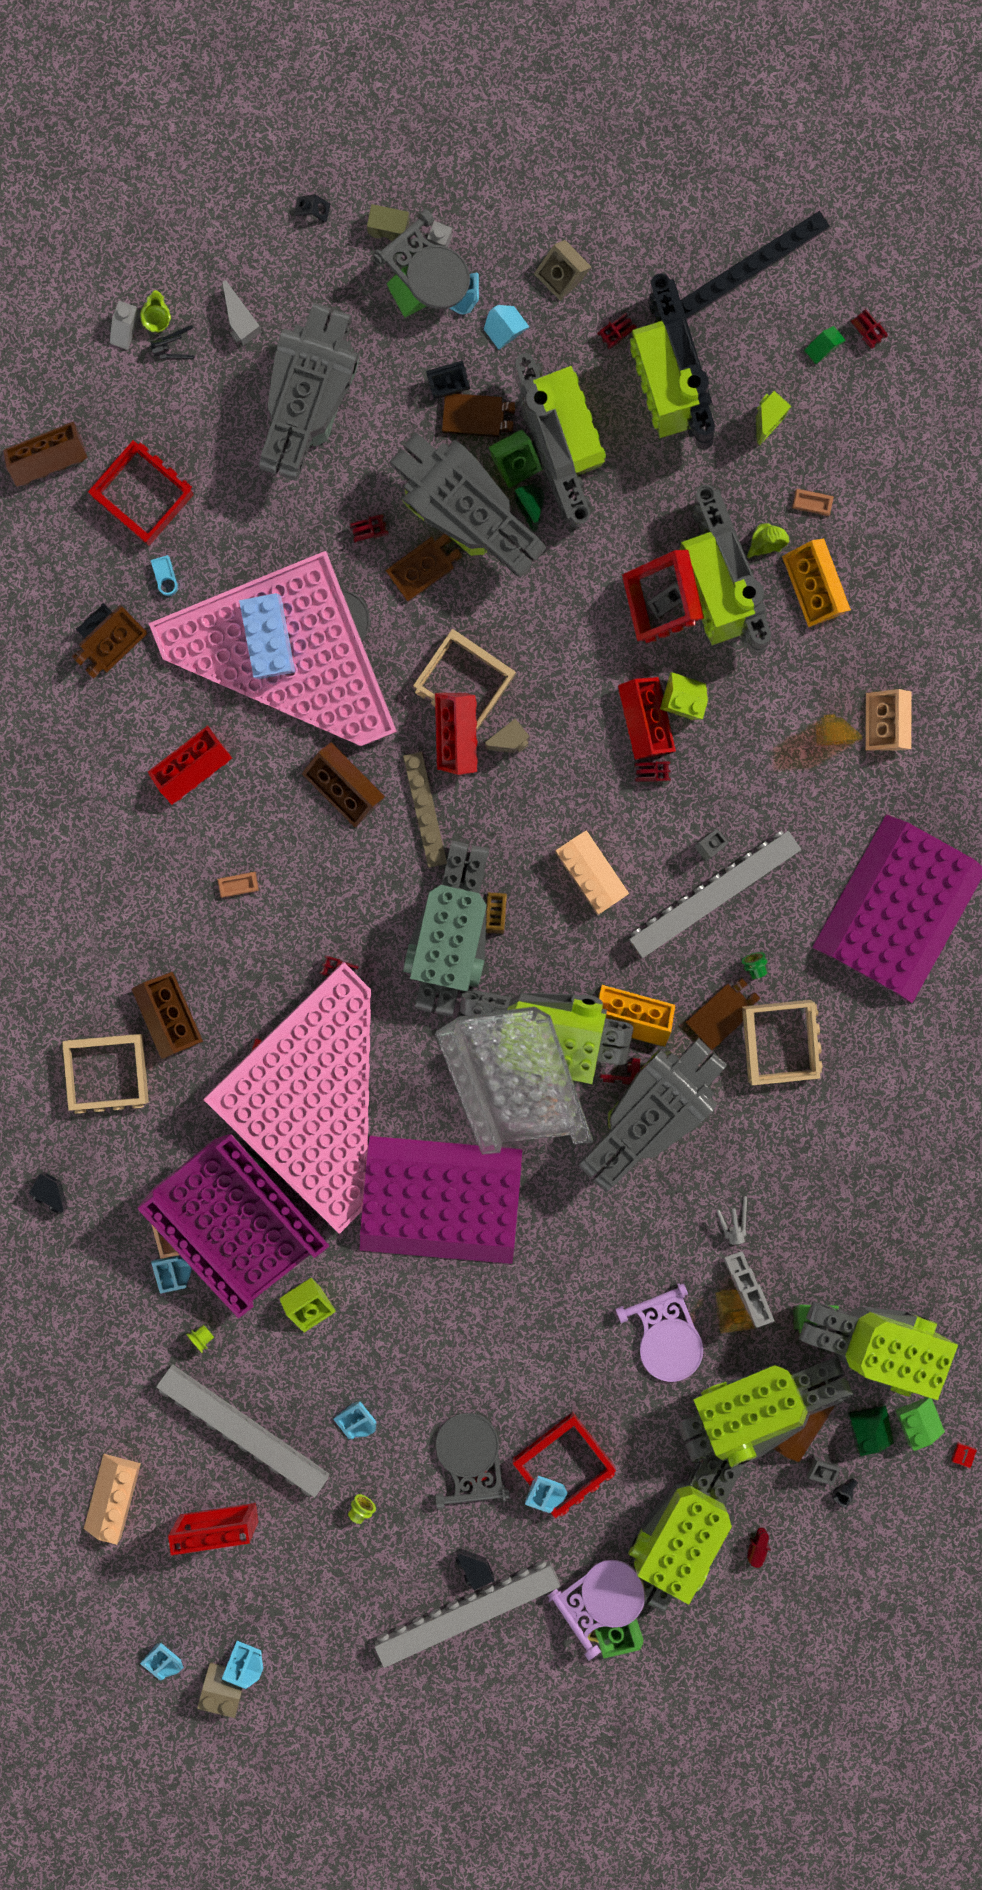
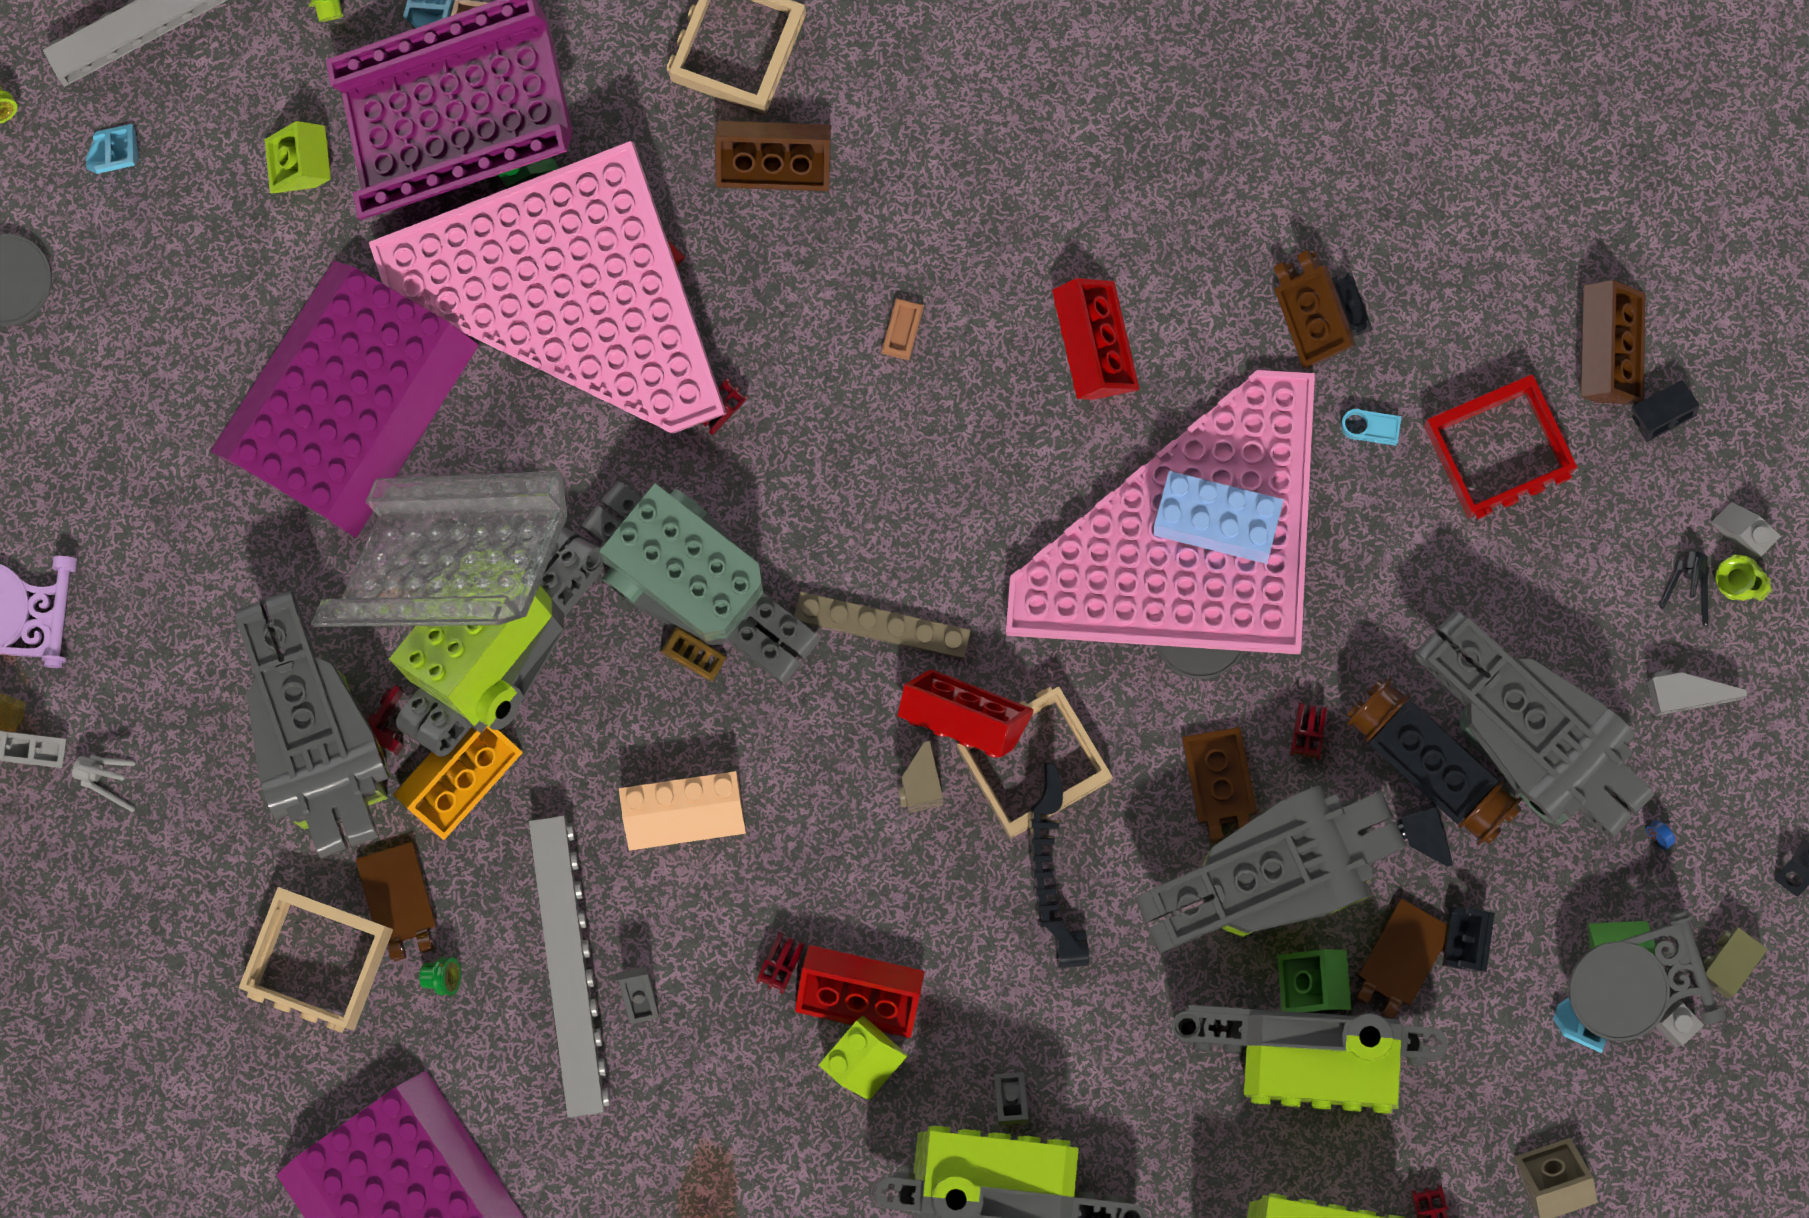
camera: 120 degrees right, 10 degrees down
(72, 405) = (1665, 410): none -> black hinge
(332, 296) = (1661, 834): none -> blue tile
(342, 784) = (969, 530): reddish brown slope -> none
(353, 444) = (1434, 761): none -> black brick
(397, 431) = (1425, 832): none -> black slope
(504, 325) = (1513, 1060): medium azure slope -> none
(530, 502) = (1237, 971): dark green slope -> none
(562, 607) = (1069, 946): none -> black piece
(688, 591) = (1005, 1118): red window -> none

